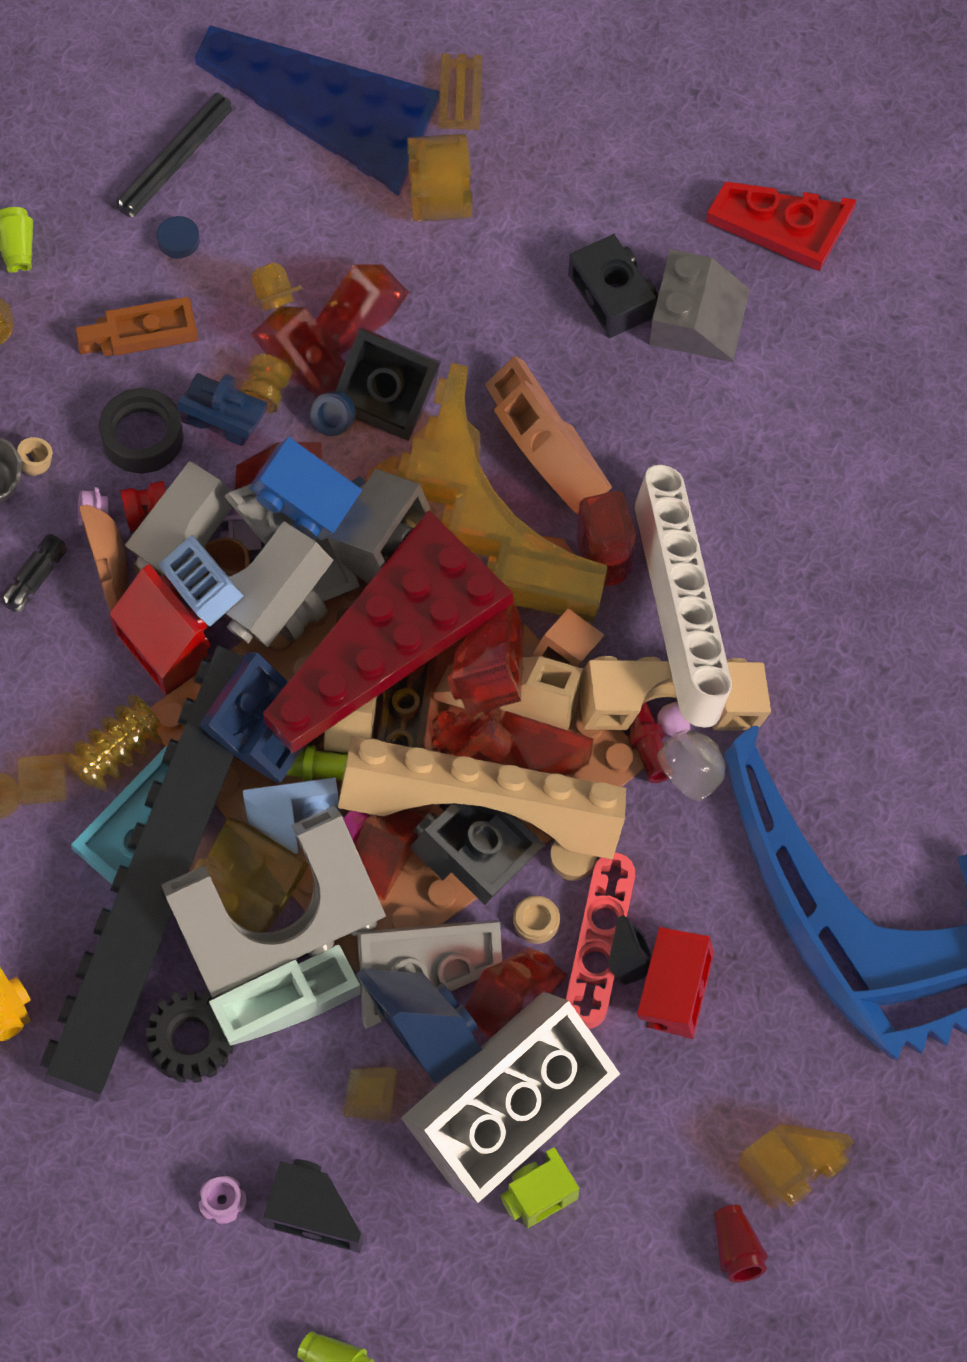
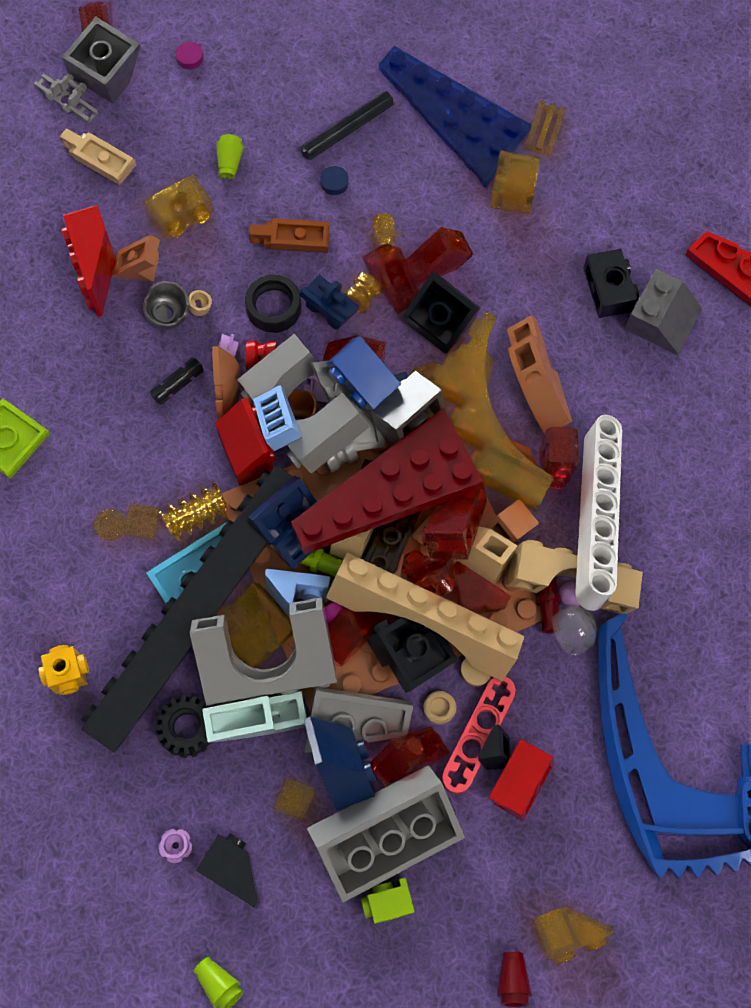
camera: 15 degrees right, 5 degrees up
(333, 413) = (401, 323): dark blue tile -> none

